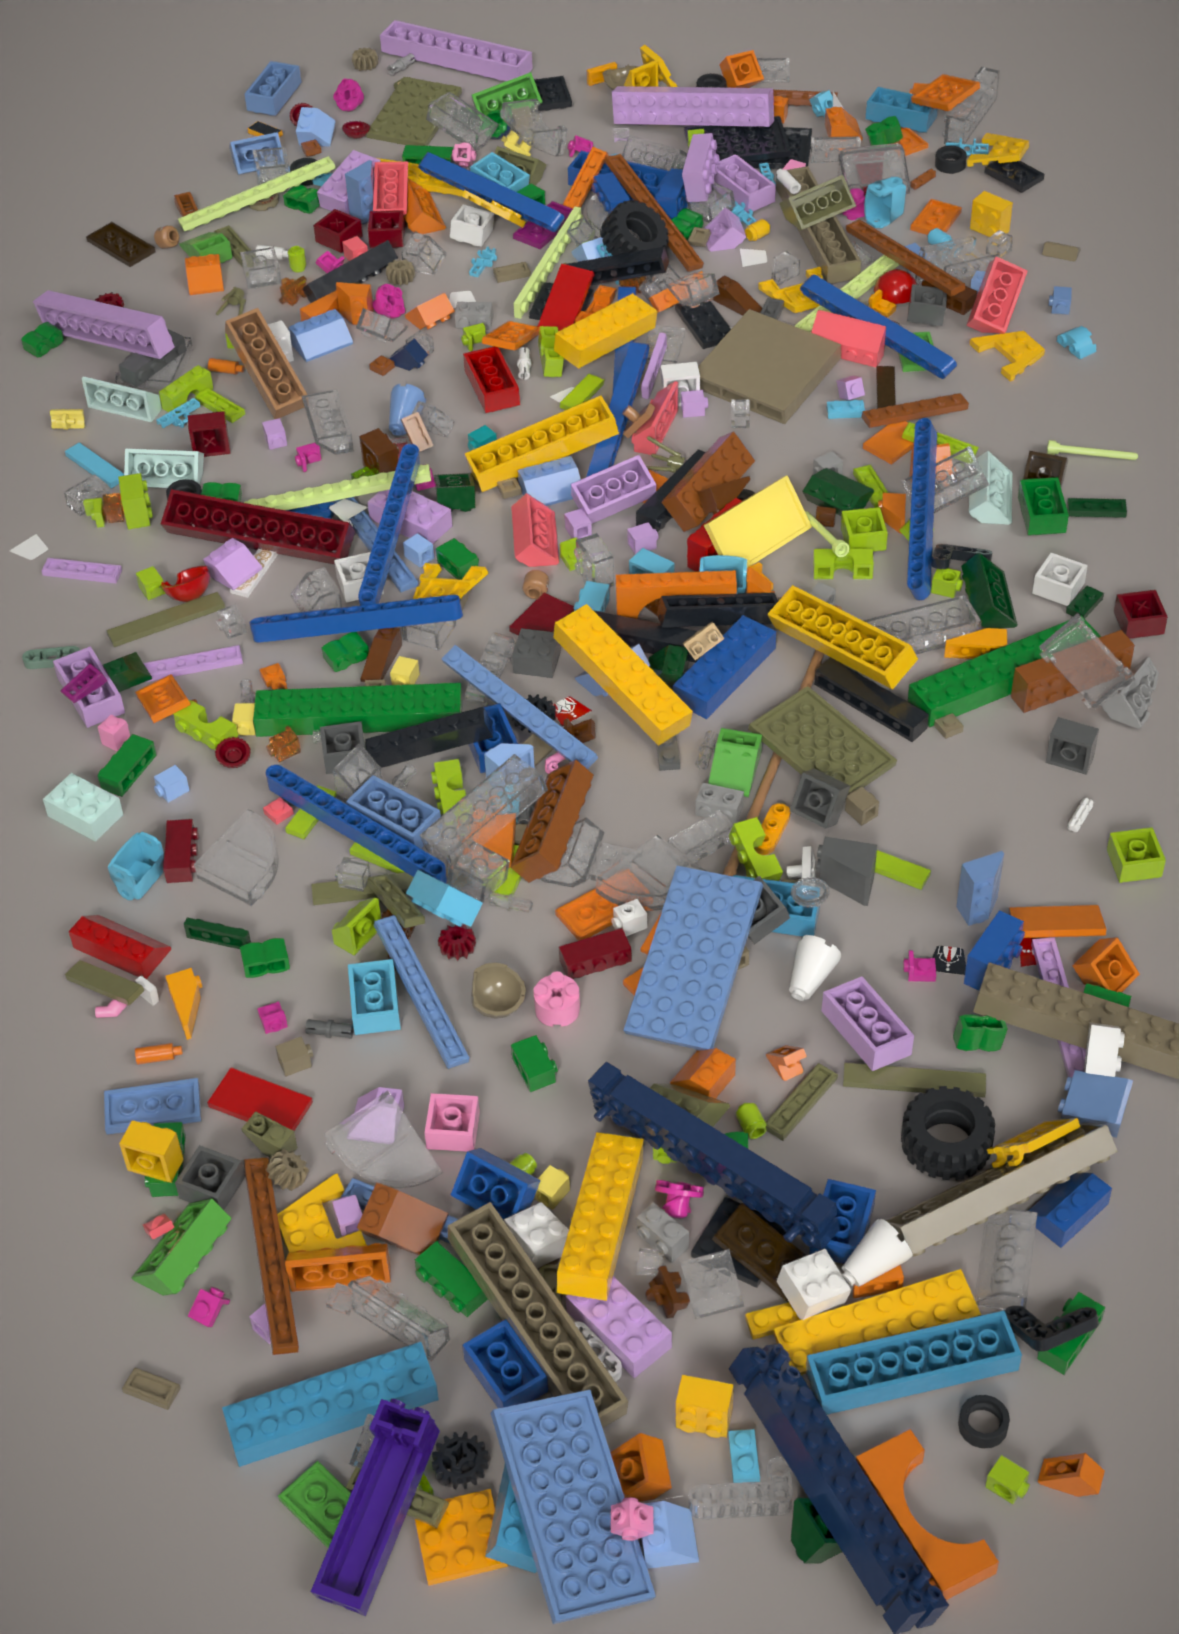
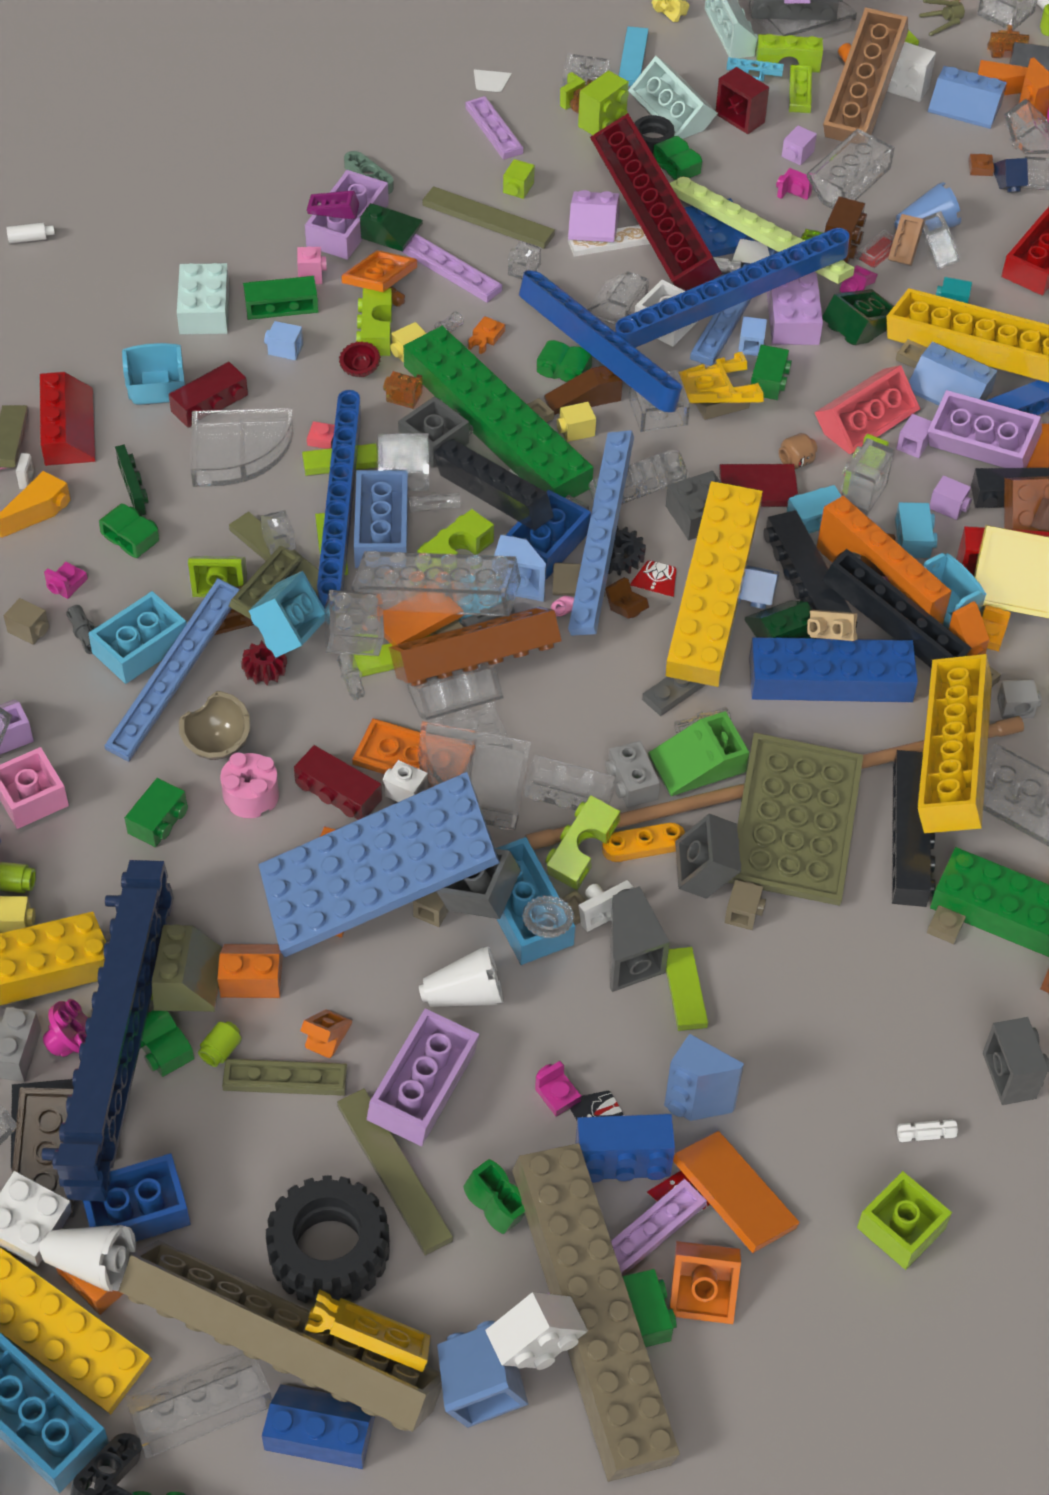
camera: 50 degrees right, 5 degrees up
(190, 584) = (535, 207): red cylinder -> none

